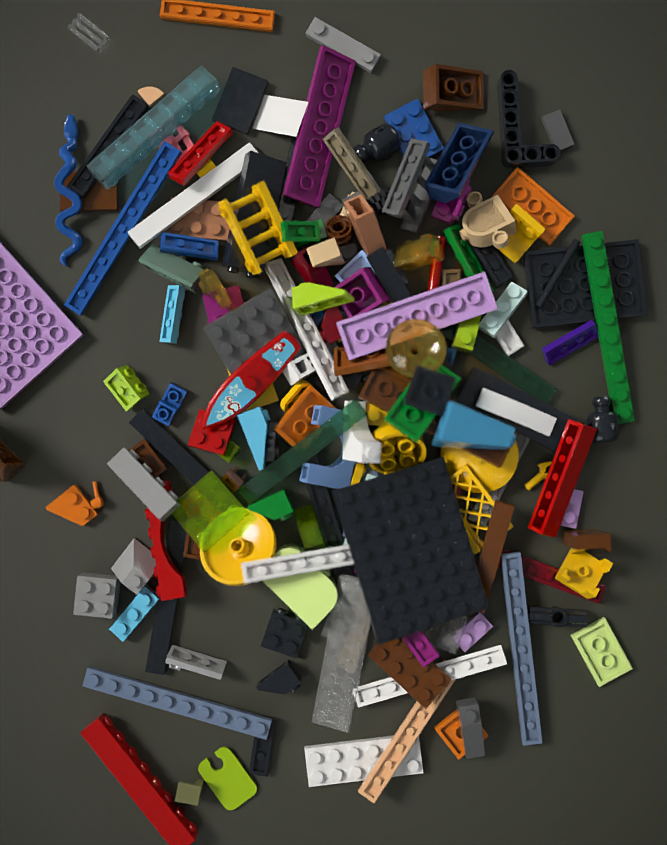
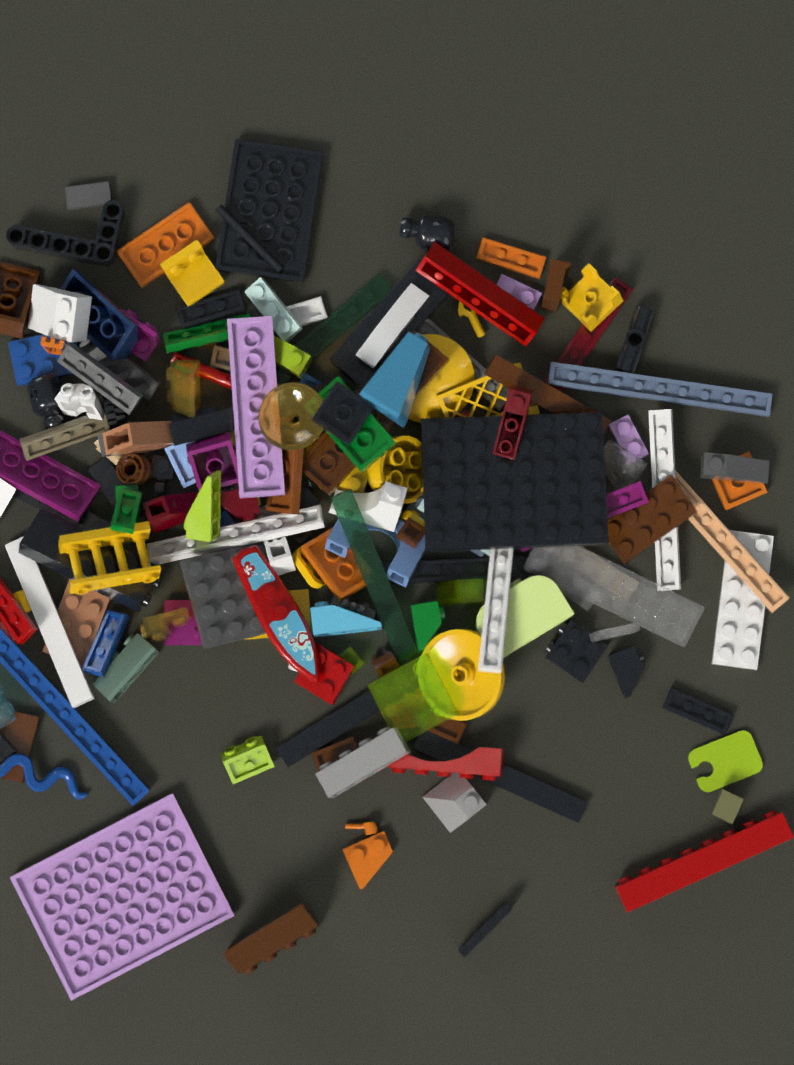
camera: 75 degrees left, 5 degrees down
(38, 618) = (485, 929): none -> black tile
(97, 595) = (476, 854): light grey brick -> none
(135, 613) = (508, 817): medium azure plate -> none
(170, 404) = (279, 714): blue slope -> none
(172, 314) = (177, 684): medium azure plate -> none
(177, 702) = (622, 795): sand blue plate -> none
(196, 662) = (573, 775): light grey hinge -> none
(308, 663) = (614, 632): none -> clear tile
(325, 254) = (158, 490): tan slope -> none
(345, 474) = (411, 533): none -> reddish brown tile
(384, 166) = (78, 399): none -> white cylinder
(423, 130) = (57, 347): none -> orange tile
(452, 132) = (59, 313): none -> white slope
(461, 536) = (513, 421): none -> dark red slope
(487, 222) = (171, 301): tan piece -> none
(570, 342) = (330, 244): dark purple plate -> none
(598, 495) = (511, 258): none -> orange tile
(601, 652) = (688, 301): yellowish green tile -> none
(607, 325) = (324, 199): green plate -> none

